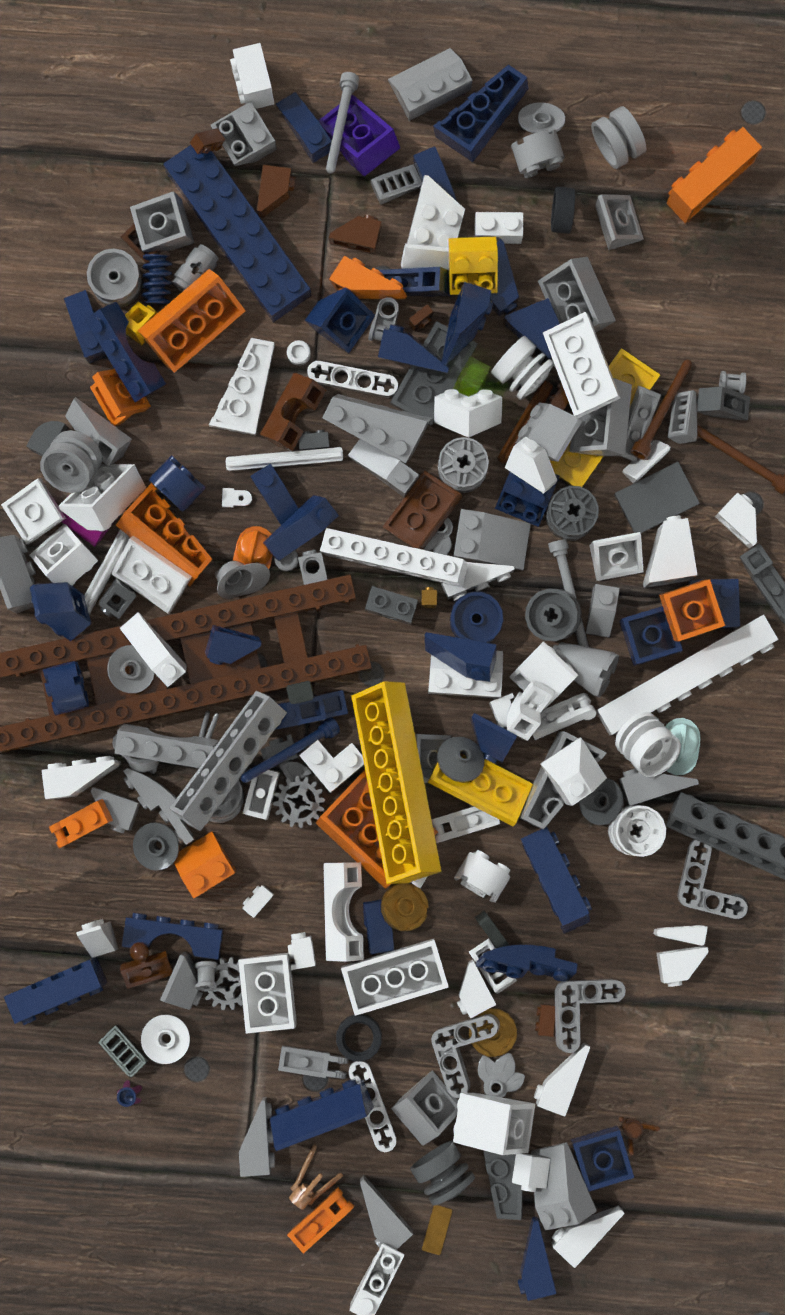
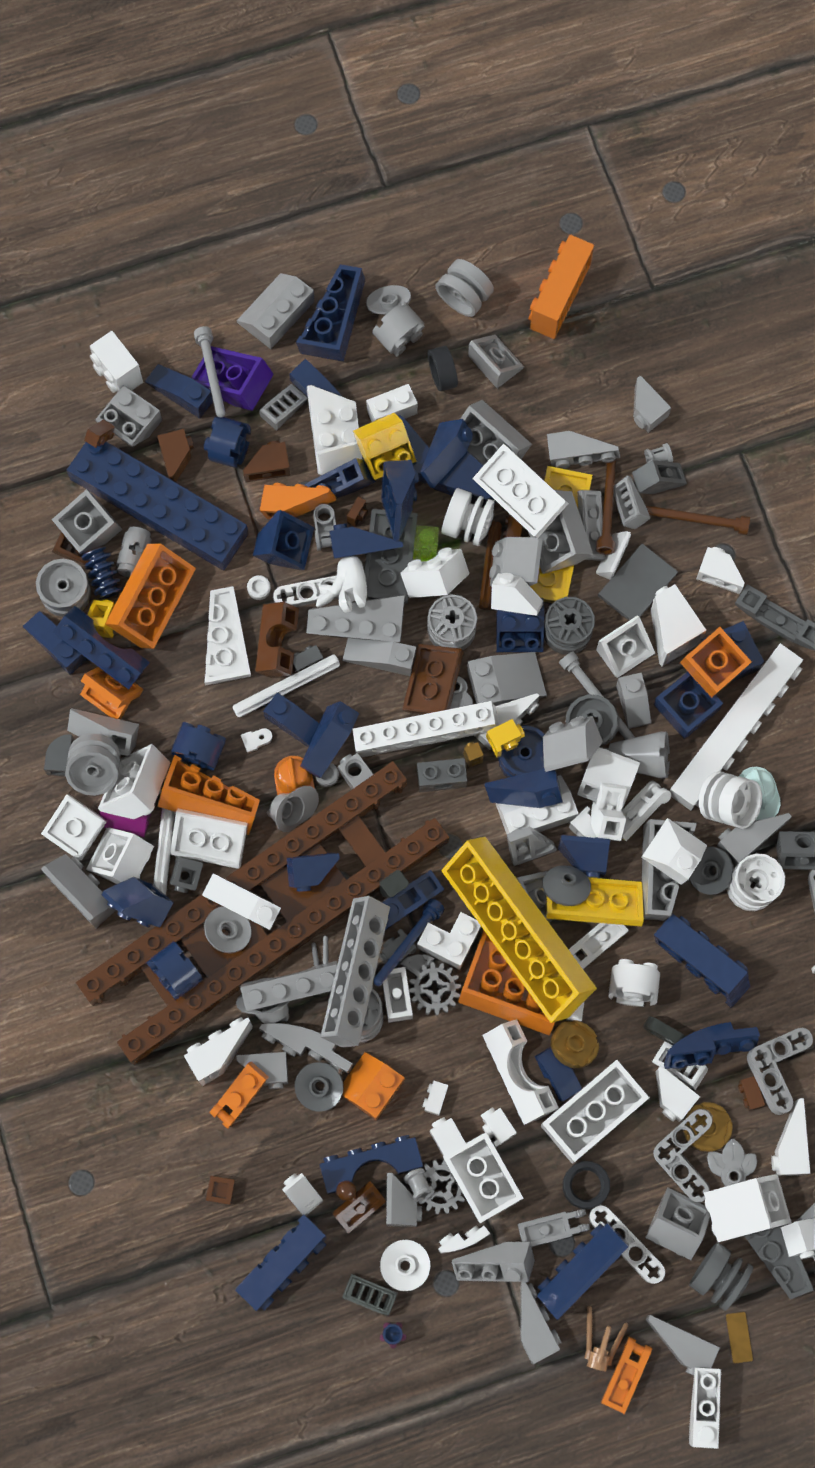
camera: 25 degrees left, 10 degrees down
(29, 901) = (220, 1190): none -> reddish brown plate
(219, 1039) = (455, 1243): none -> white slope
(251, 1074) = (497, 1263): none -> light grey slope
(252, 940) = (446, 1135): none -> white brick
(327, 198) = (227, 442): none -> dark blue brick
(380, 388) = (349, 585): none -> white piece
(442, 705) = (528, 844): none -> light grey wing
(462, 598) = (504, 737): none -> yellow brick
(520, 630) = (570, 743): none -> light grey slope
(532, 292) = (446, 449): none -> dark blue slope
(652, 341) = (573, 448): none -> light grey slope
(744, 329) = (648, 406): none -> light grey slope

